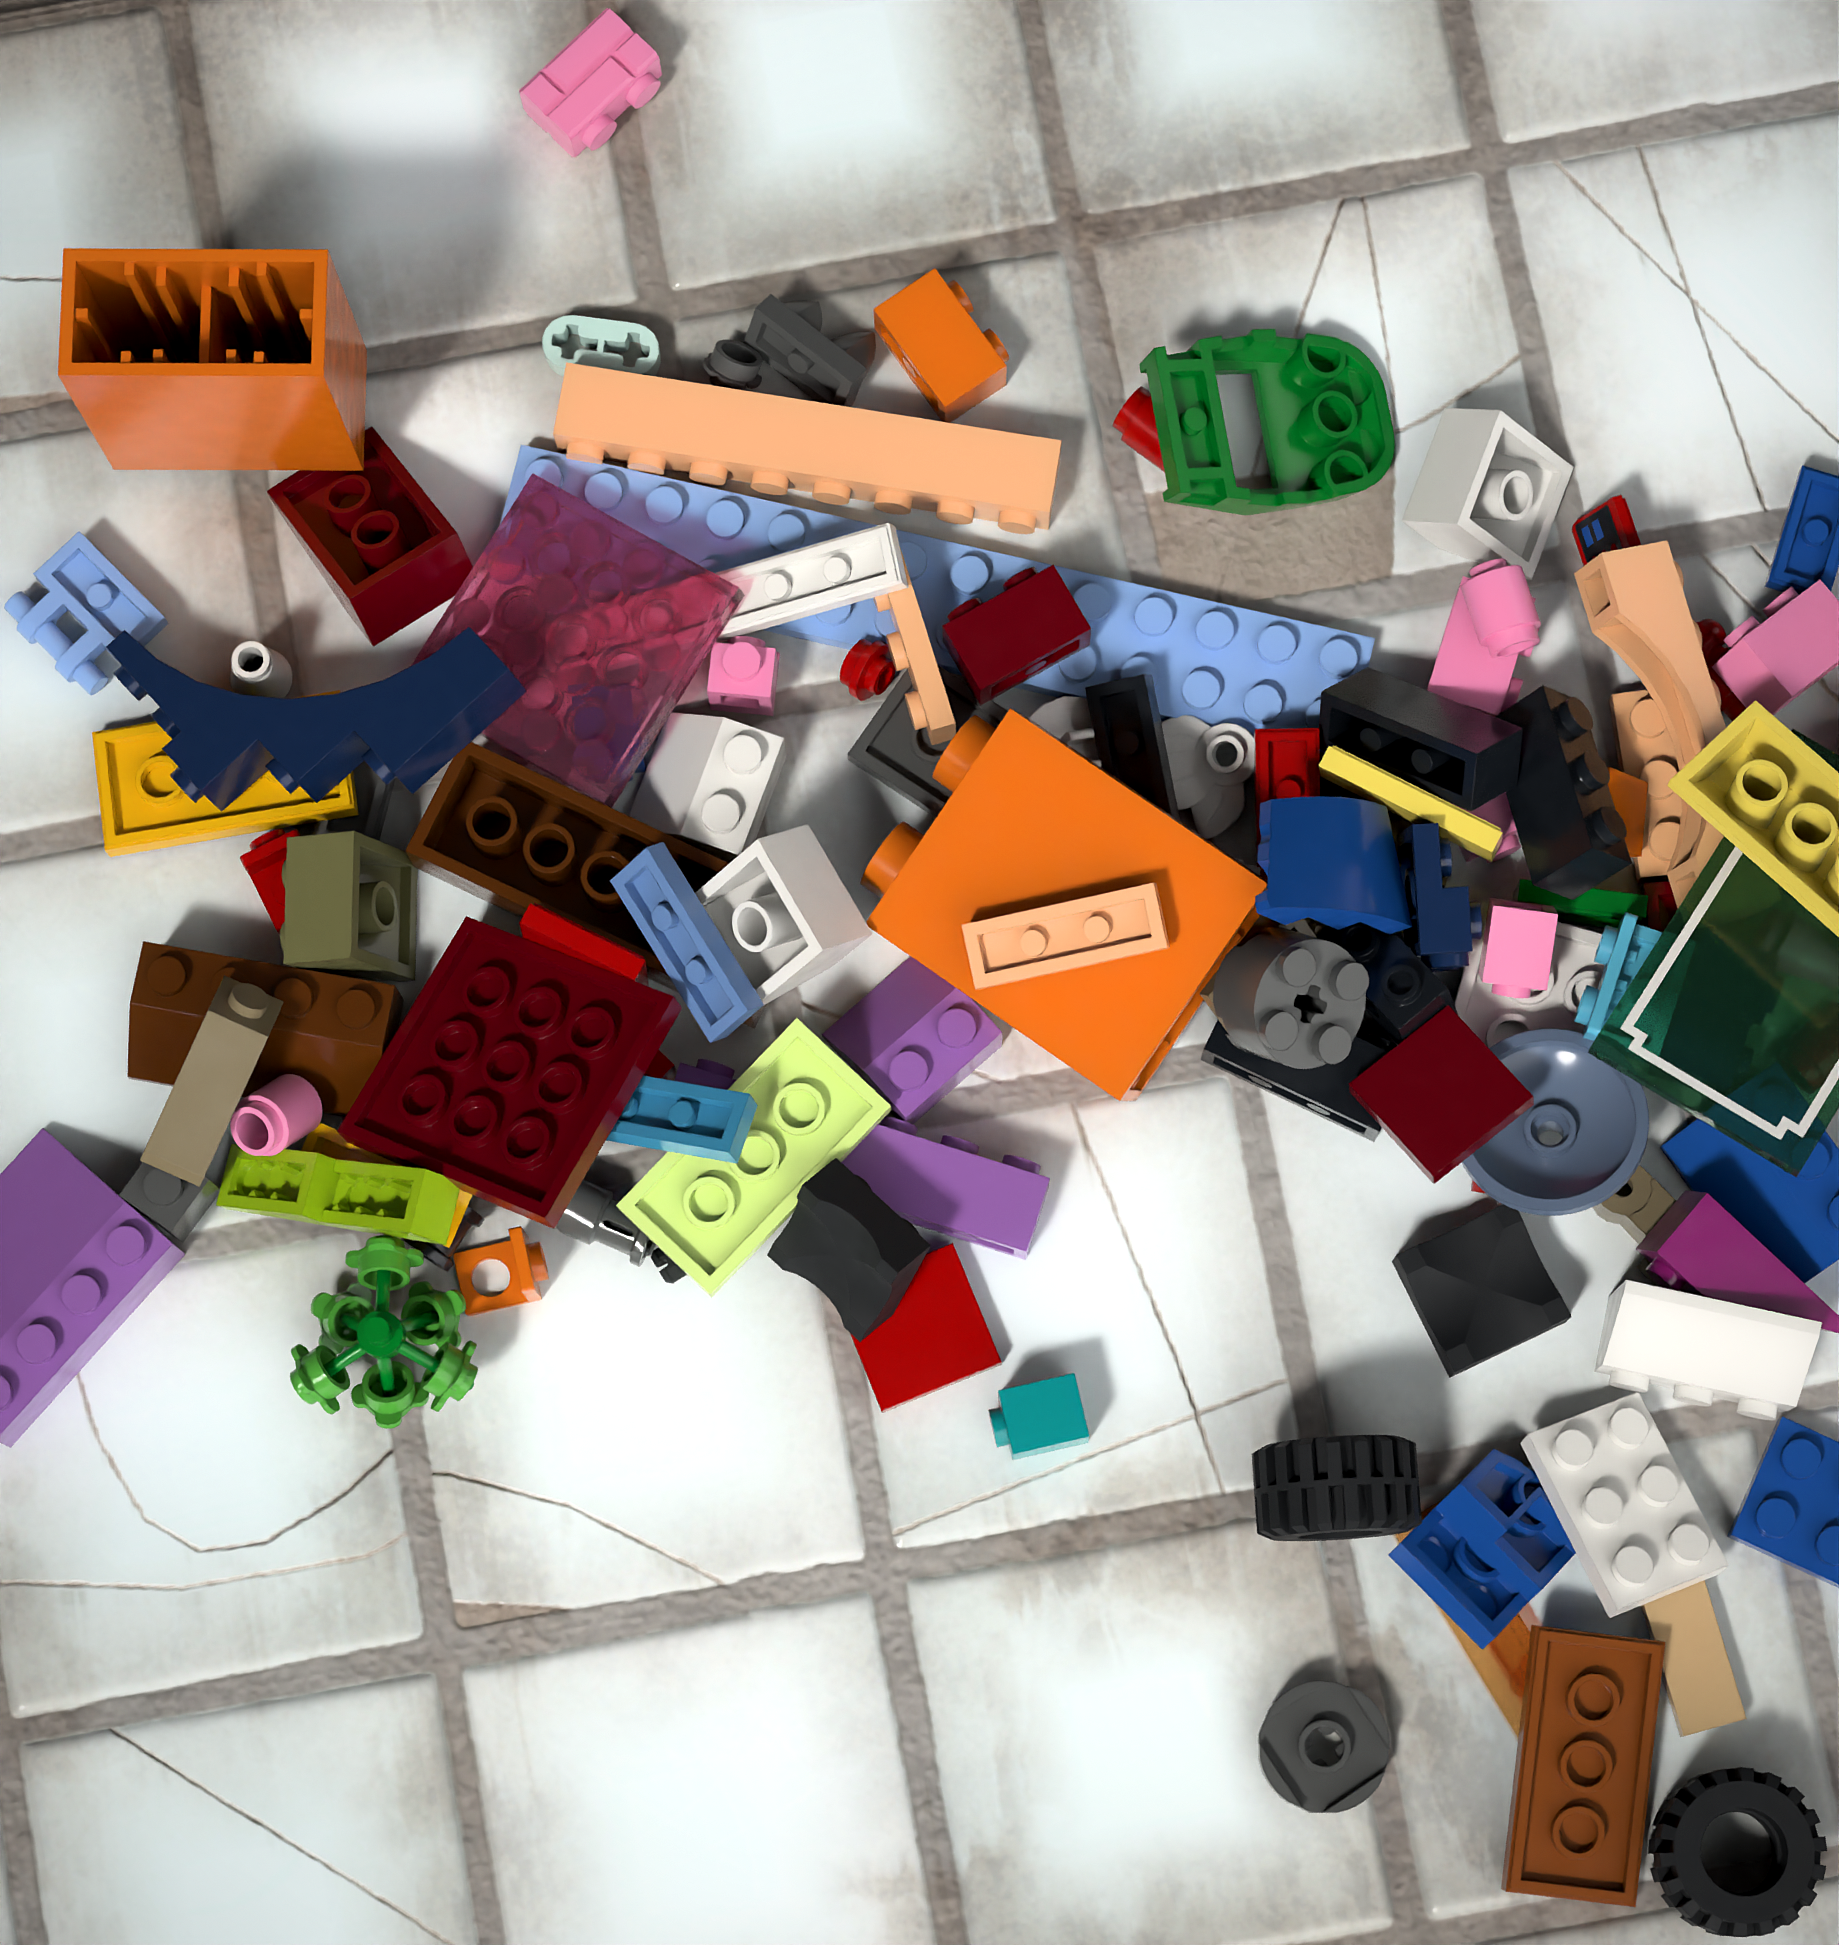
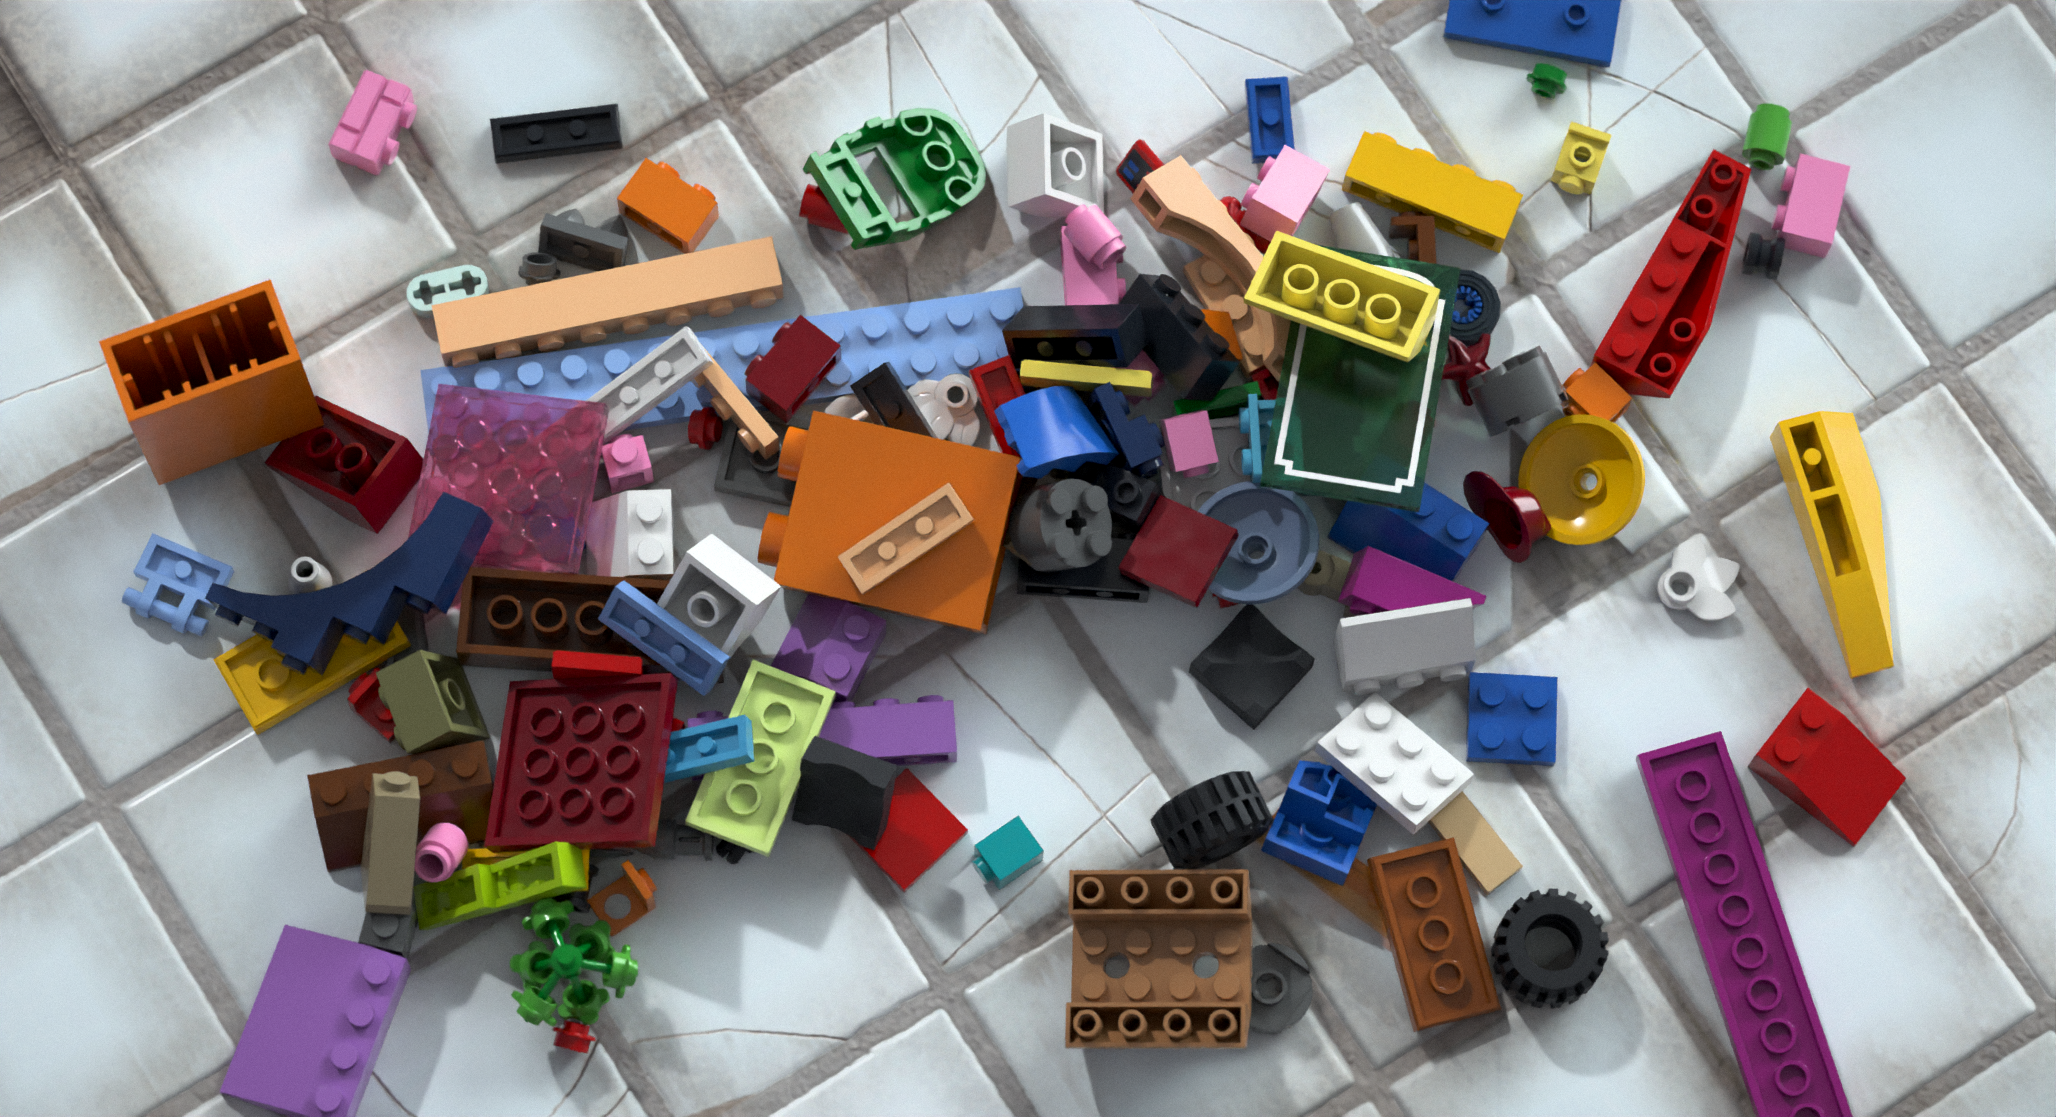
camera: 30 degrees left, 5 degrees down
(357, 1435) = (573, 1036): none -> red plate
(833, 189) = (556, 133): none -> black tile
(1208, 1612) = (1162, 928): none -> medium nougat slope

